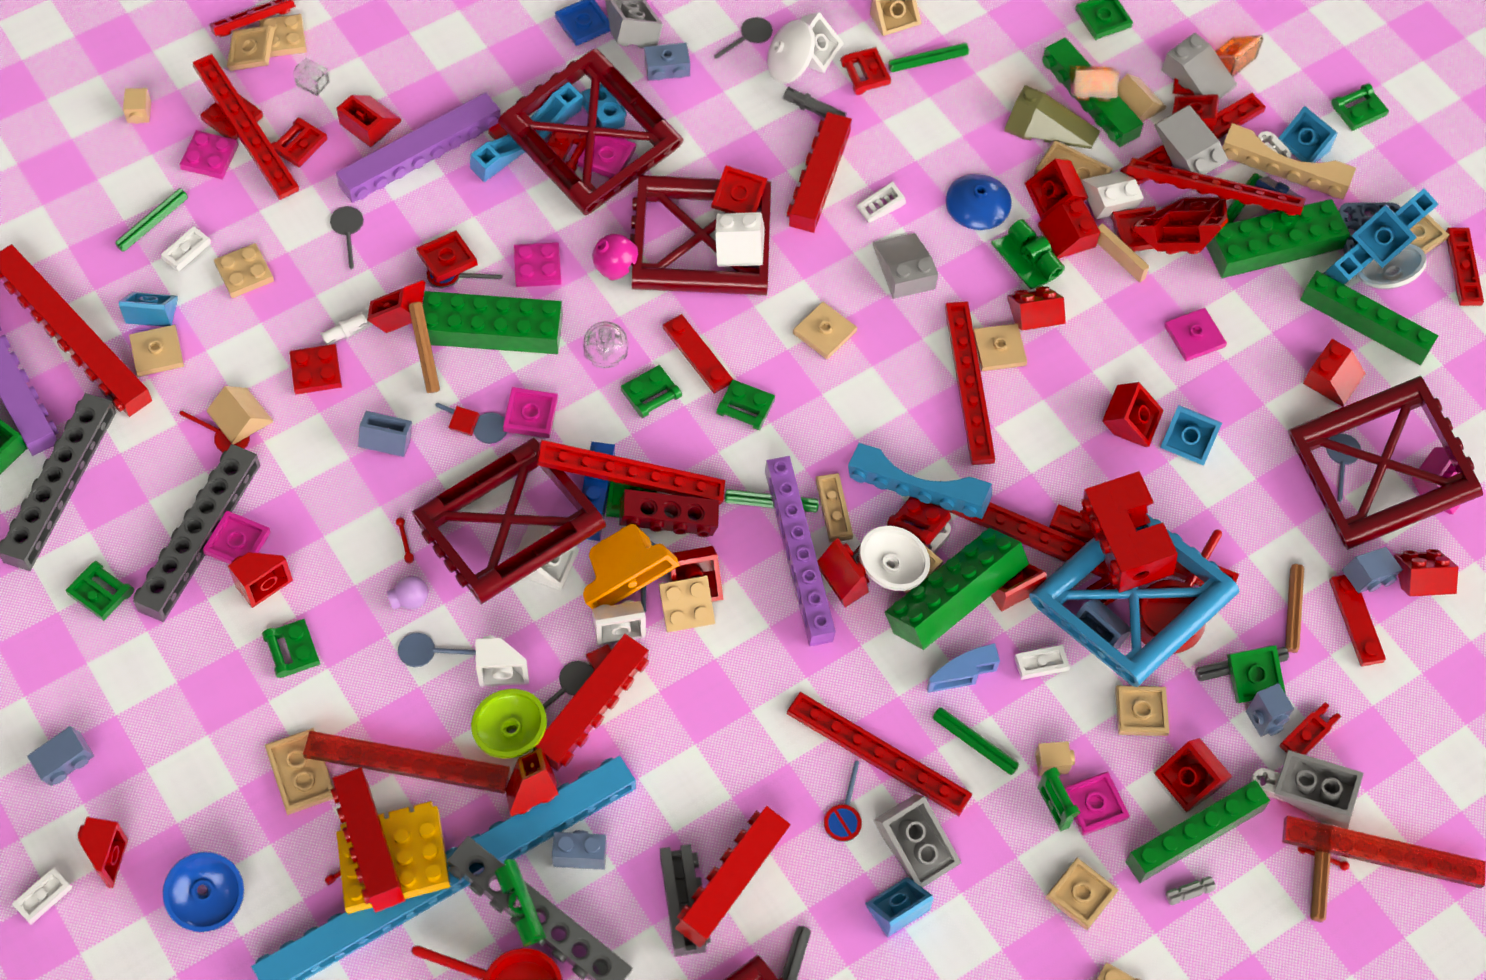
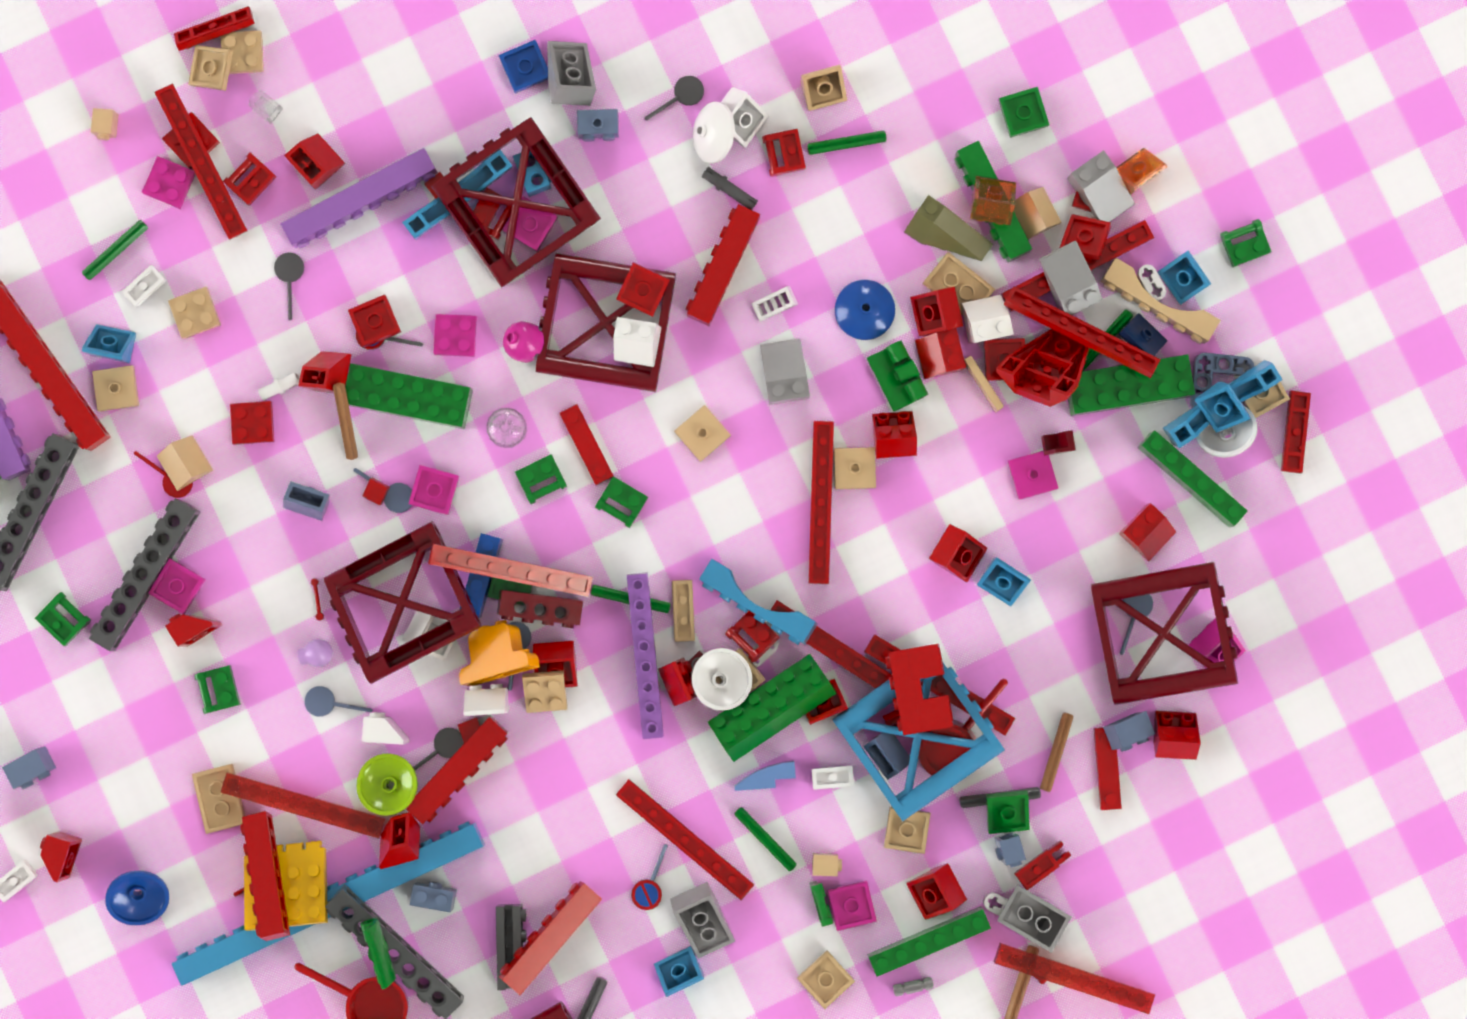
camera: 10 degrees right, 25 degrees up
(1218, 300) = (1058, 443): none -> dark red panel

